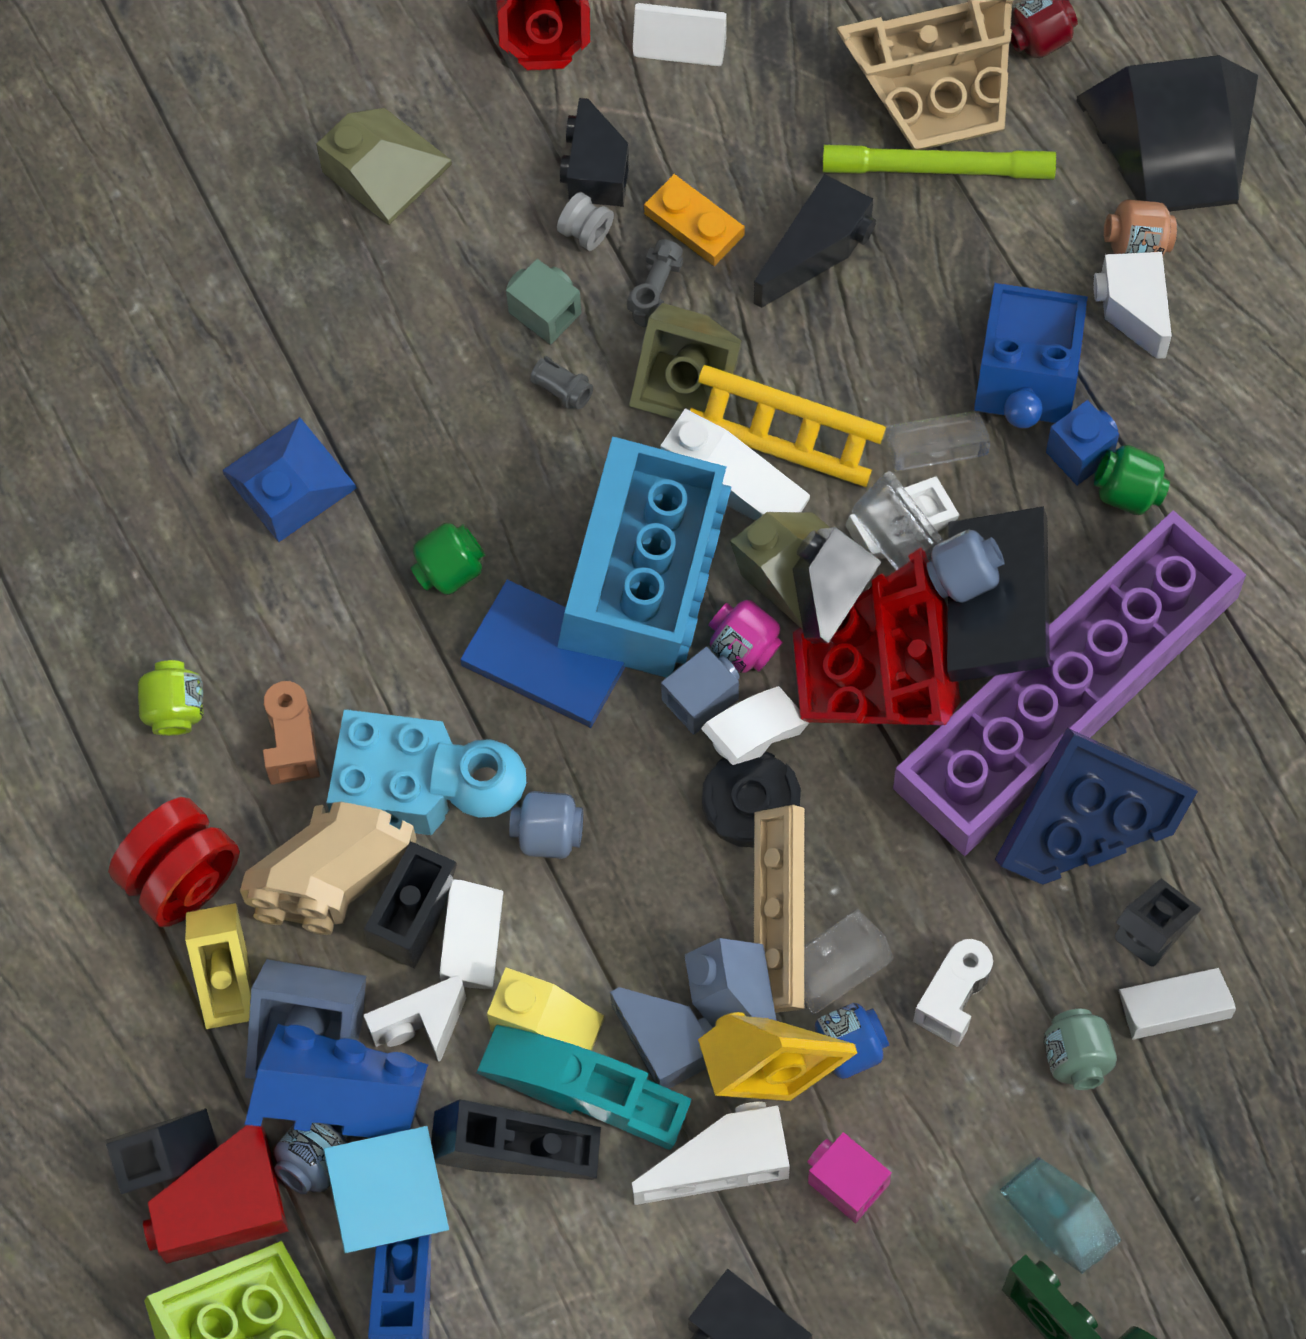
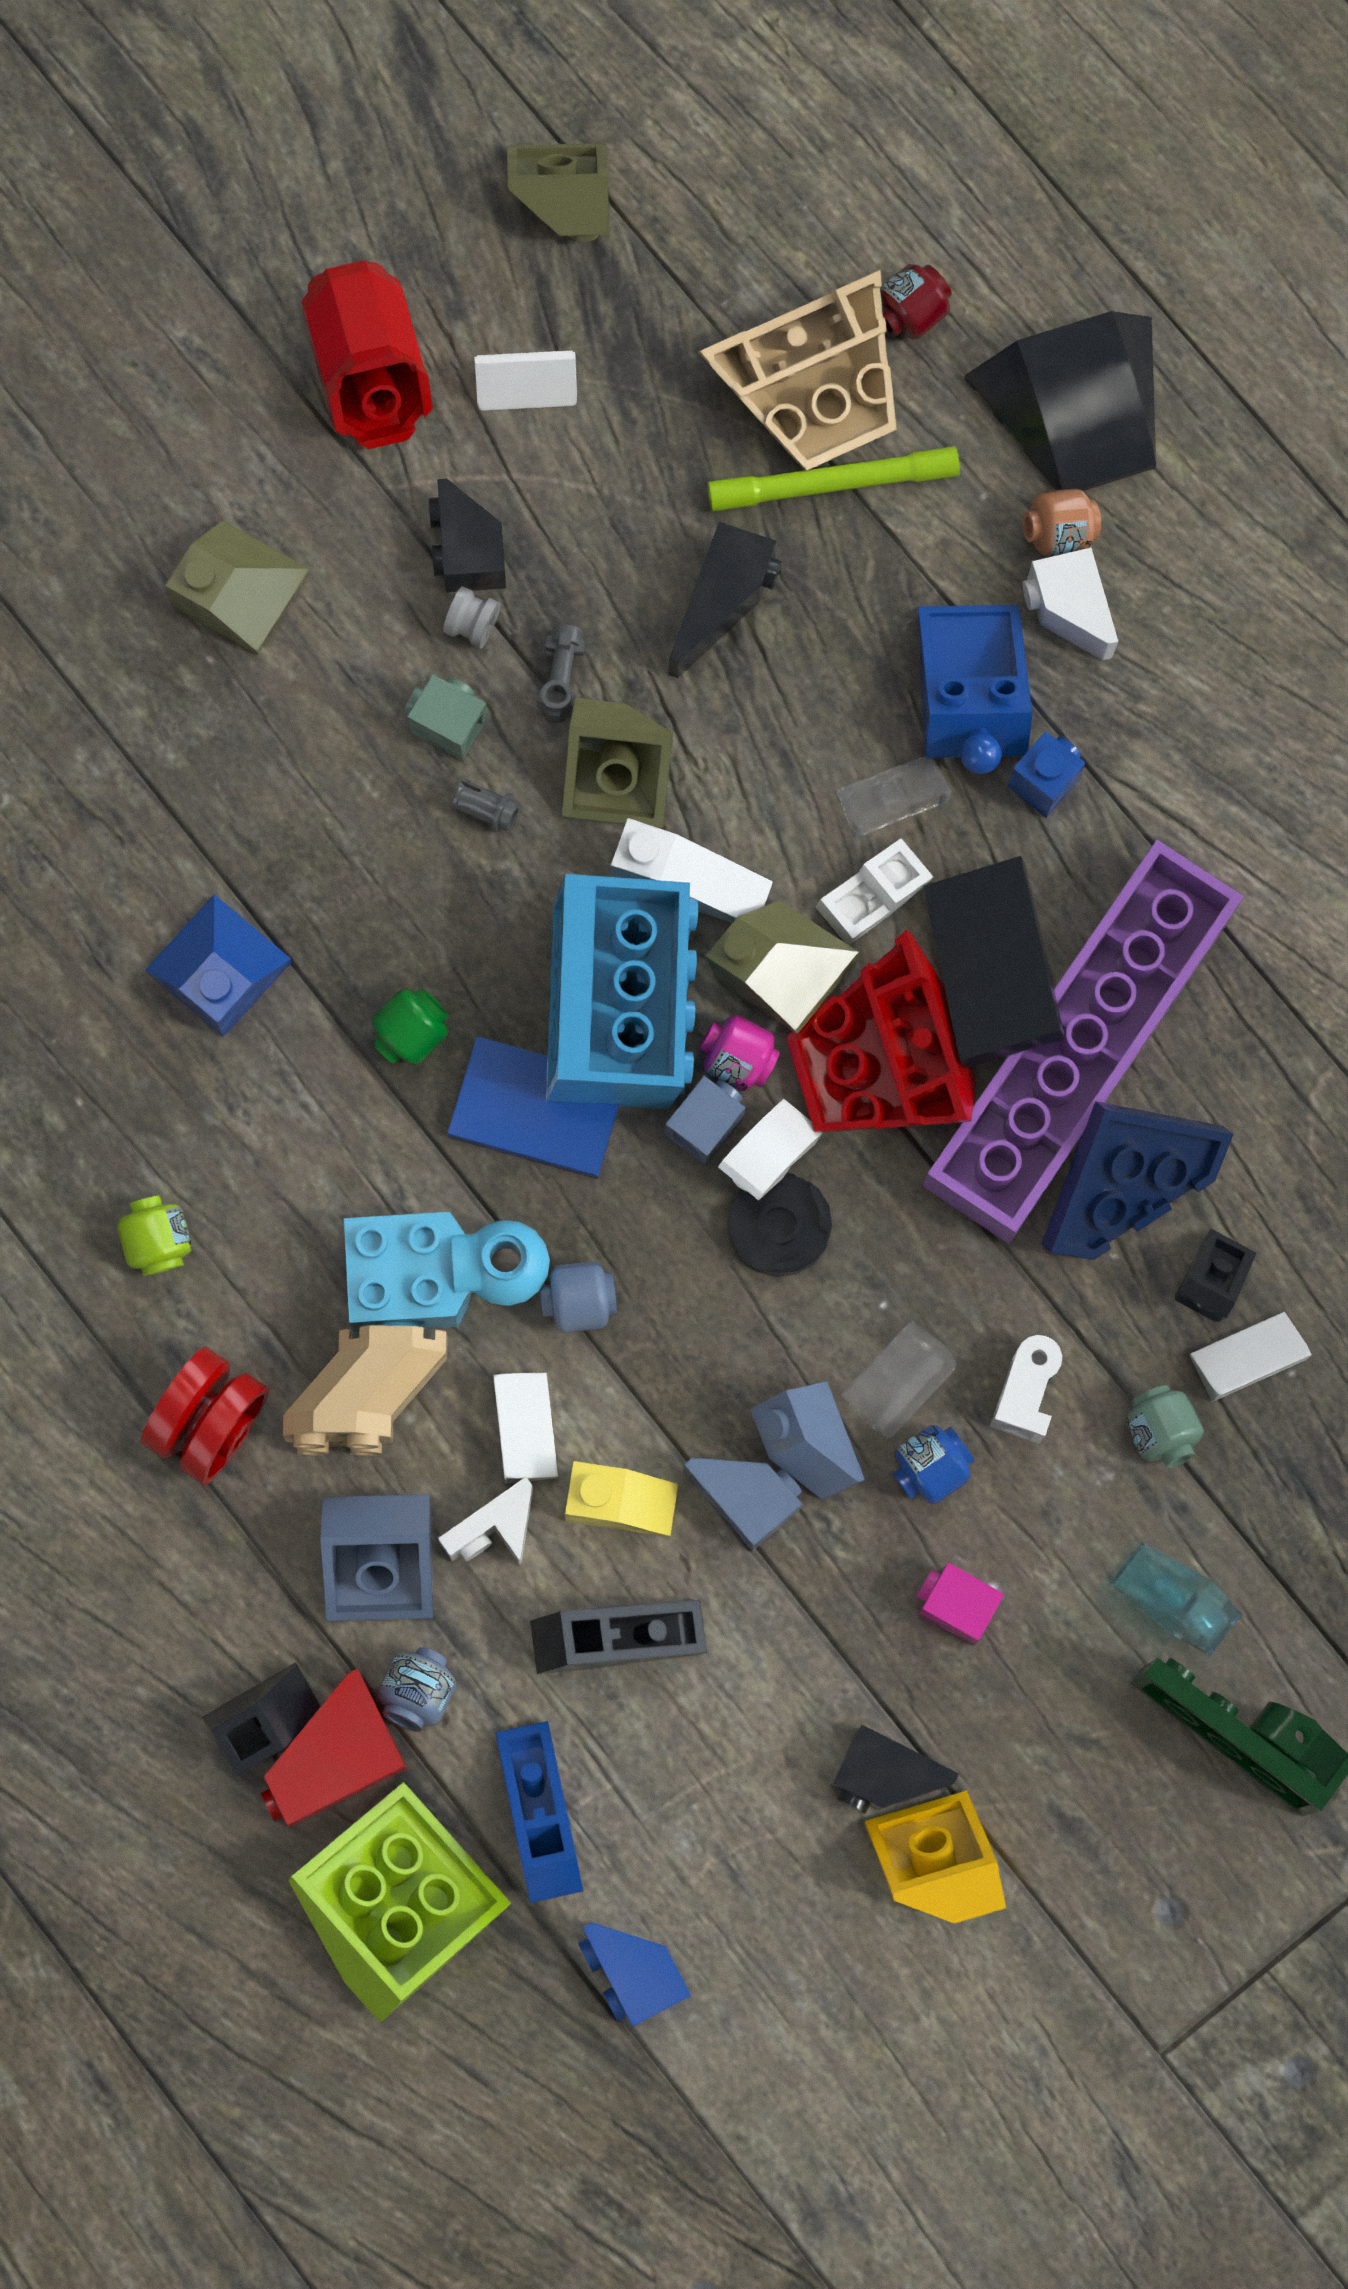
camera: 20 degrees left, 10 degrees up
(219, 964) = (275, 1511): light yellow slope -> none
(292, 722) = (285, 1232): nougat leg -> none
(335, 1084) = (428, 1617): blue wedge -> none
(385, 1189) = (502, 1713): medium azure tile -> none
(410, 905) = (460, 1411): black slope -> none
(584, 1081) = (676, 1562): teal slope -> none
(694, 220) = (586, 591): light orange plate -> none
(729, 1154) = (839, 1602): white slope -> none
(768, 1057) = (857, 1501): yellow slope -> none
(781, 901) = (835, 1332): tan tile -> none
(813, 416) = (759, 796): yellow bar -> none
(829, 580) = (819, 985): slope -> none
(895, 521) = (873, 903): clear slope -> none
(965, 566) = (956, 942): sand blue head -> none
(1131, 480) = (1104, 806): green head -> none

